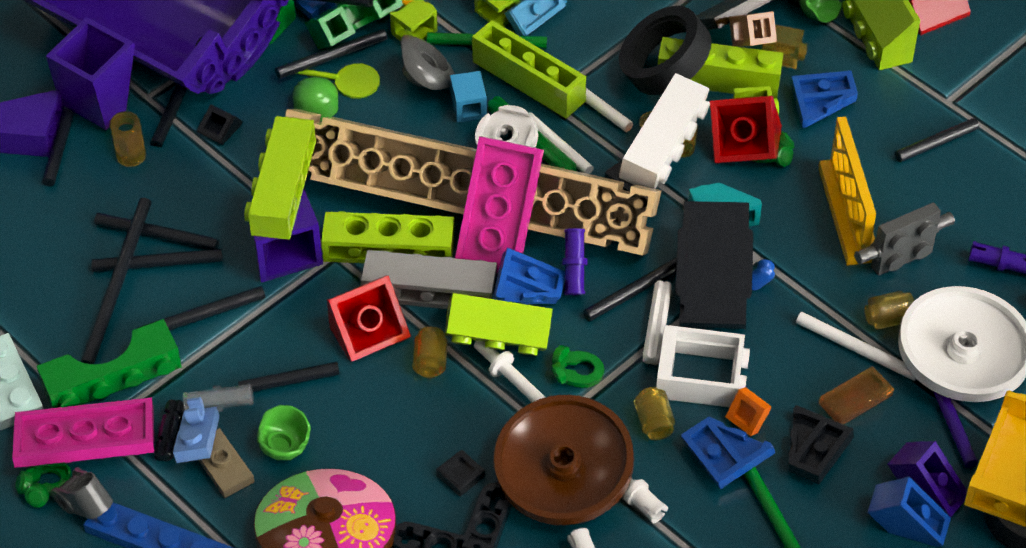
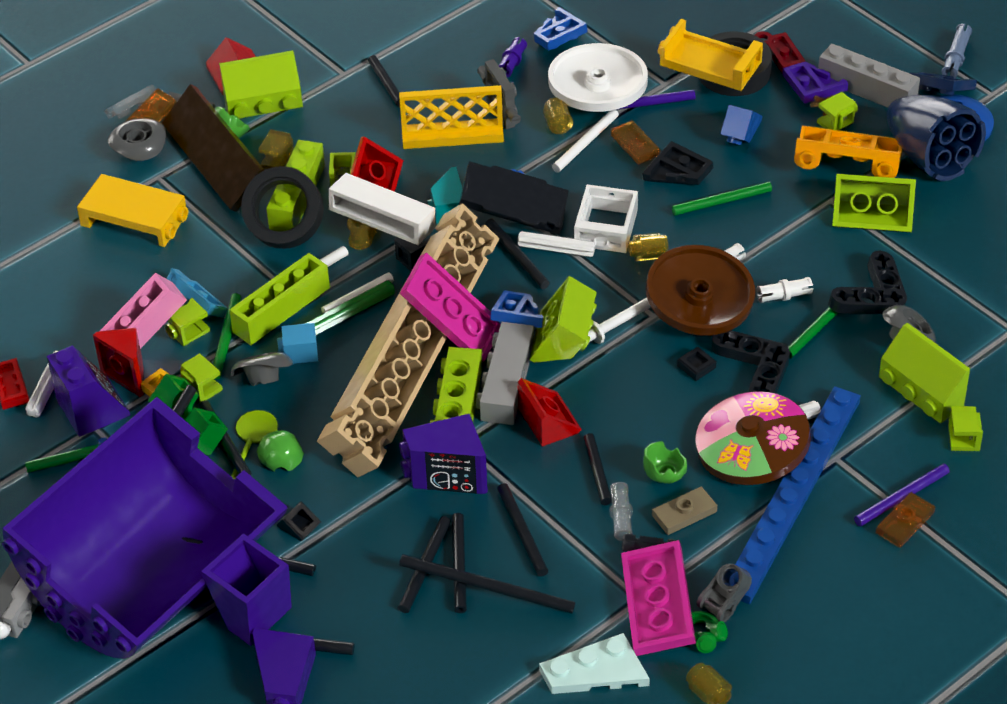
camera: 85 degrees left, 5 degrees down
(77, 383) = (573, 558): green arch -> none
(128, 144) = (314, 587): clear yellow piece -> none
(196, 432) = (662, 520): medium blue plate -> none
(281, 177) = (424, 427): lime brick -> none
(430, 352) = (582, 373): clear yellow brick -> none
(509, 118) = (350, 331): white plate -> none
(563, 357) = (606, 297): green piece -> none
(574, 261) = (500, 278): dark purple pin -> none
(724, 450) = (686, 211): blue wing -> none
(748, 411) = (650, 196): orange tile -> none
(753, 29) = (275, 149): medium nougat brick -> none
(822, 94) = (333, 133): blue wing -> none
(931, 472) = (706, 111): dark purple slope -> none

